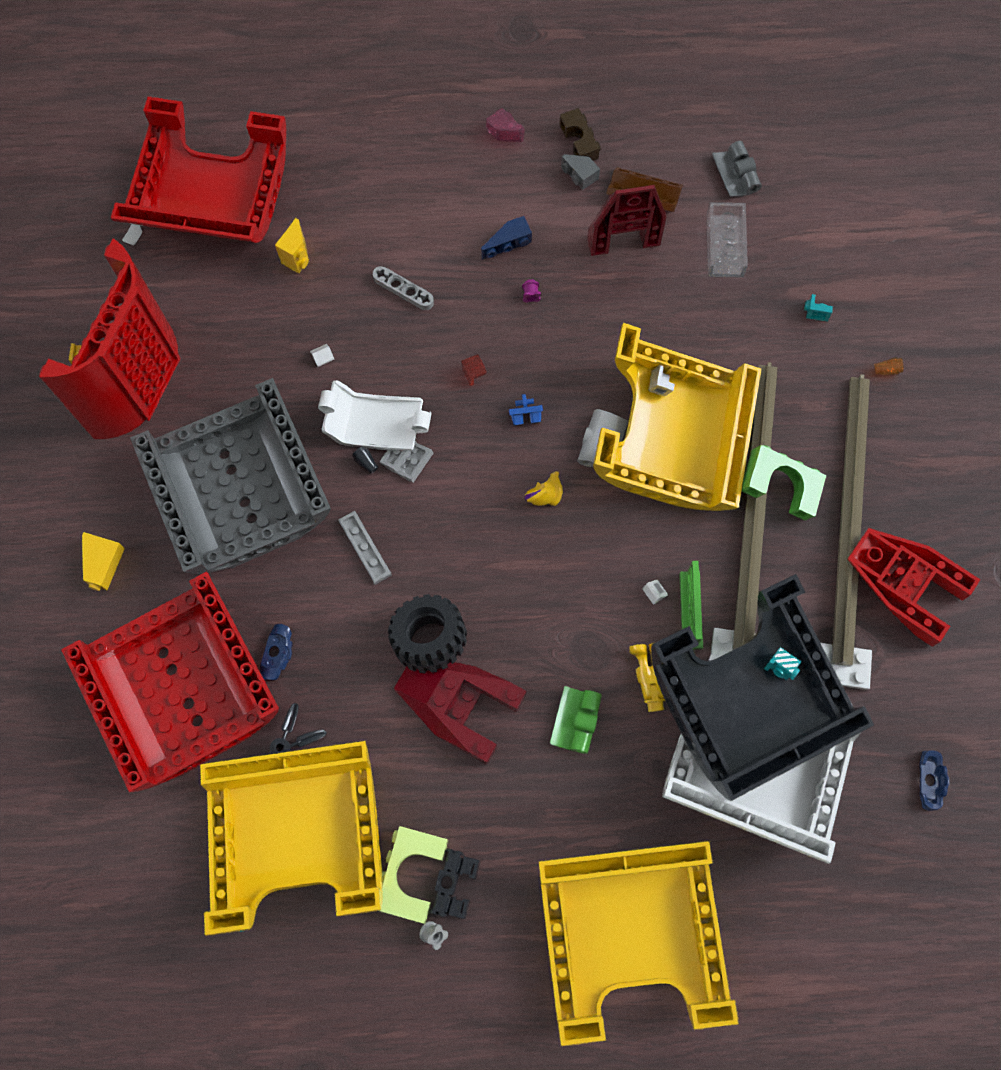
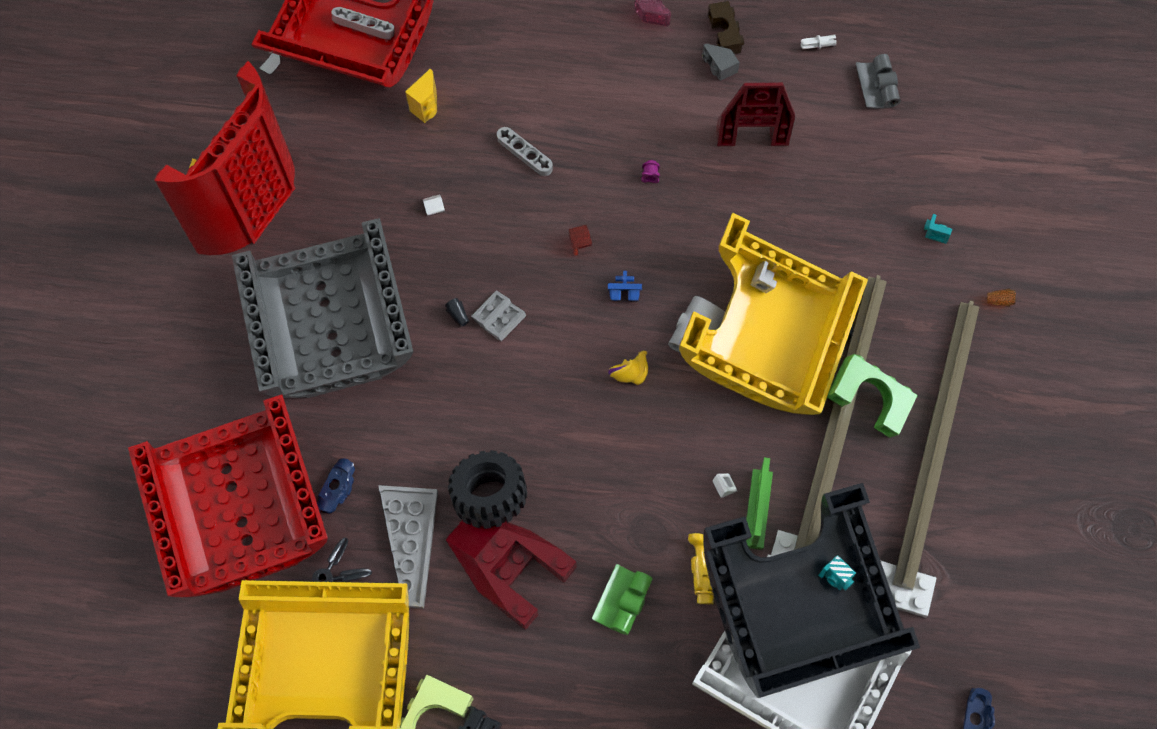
camera: 10 degrees right, 5 degrees down
(100, 560) = (181, 370): yellow slope -> none
(199, 177) = (344, 16): none -> light grey beam
(357, 684) = (410, 530): none -> light grey wing
(365, 547) = (442, 397): light grey tile -> none
(372, 419) = (470, 273): white panel -> none
(510, 236) = (639, 115): dark blue slope -> none
(667, 191) = (800, 93): reddish brown slope -> none
(672, 137) = (818, 42): none -> white axle
(726, 239) = (855, 148): clear brick -> none
(899, 574) = (977, 503): red wedge -> none

